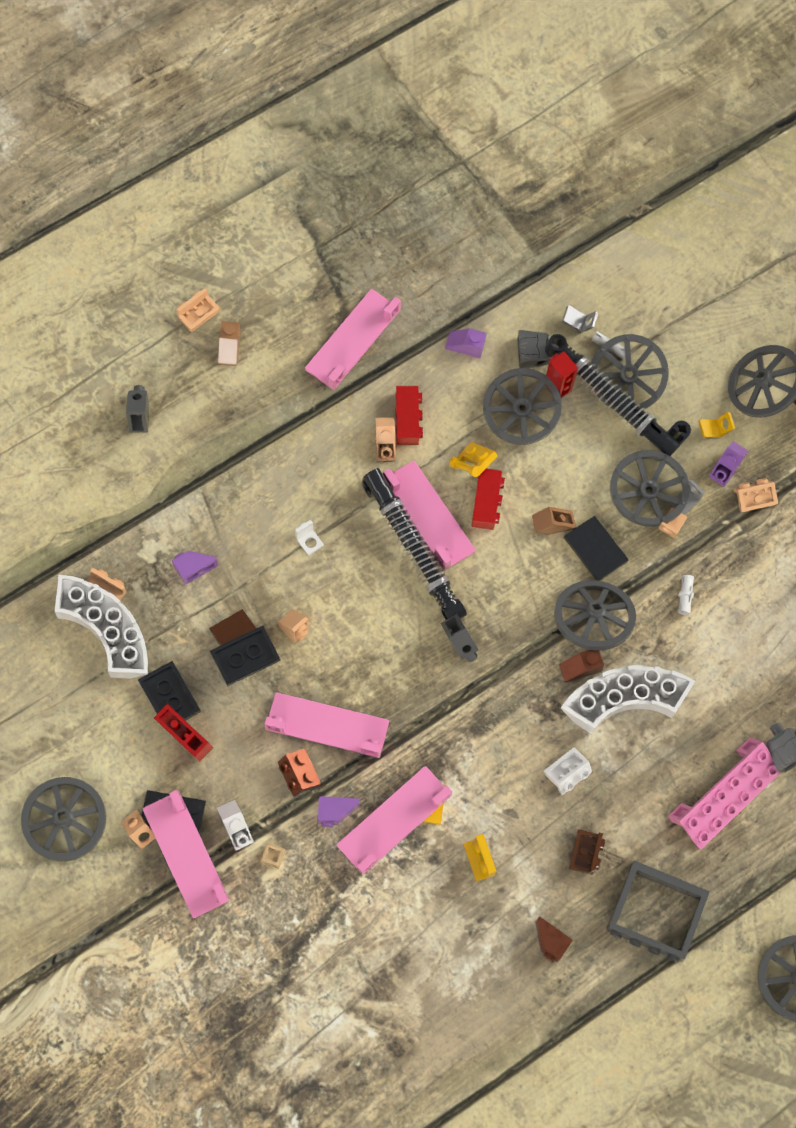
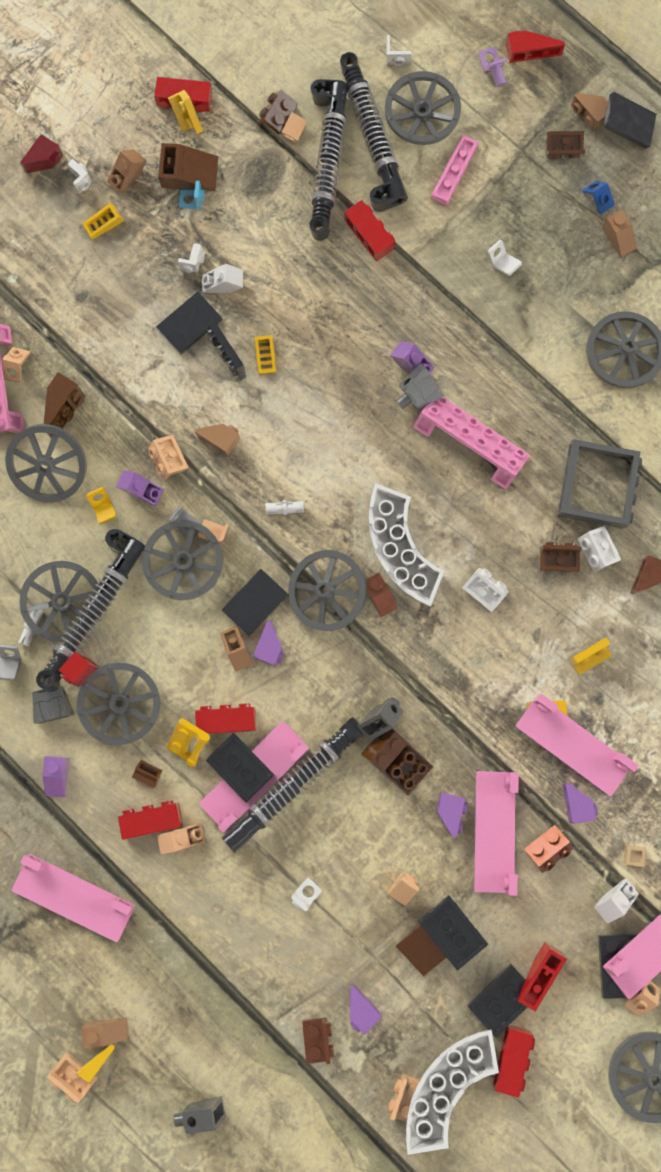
camera: 95 degrees left, 10 degrees up
(112, 692) = (513, 1061): none -> red brick
(175, 522) = (316, 1040): none -> copper bracket
(203, 328) = (89, 1070): none -> yellow slope
(355, 685) = (450, 811): none -> medium lavender slope
(415, 647) = (397, 760): none -> reddish brown slope
(439, 502) = (239, 767): none -> black tile
(450, 420) = (147, 773): none -> reddish brown piece
(551, 552) = (269, 647): none -> medium lavender slope
(589, 895) = (599, 549): none -> white bracket
(768, 547) = (220, 437): none -> medium nougat slope

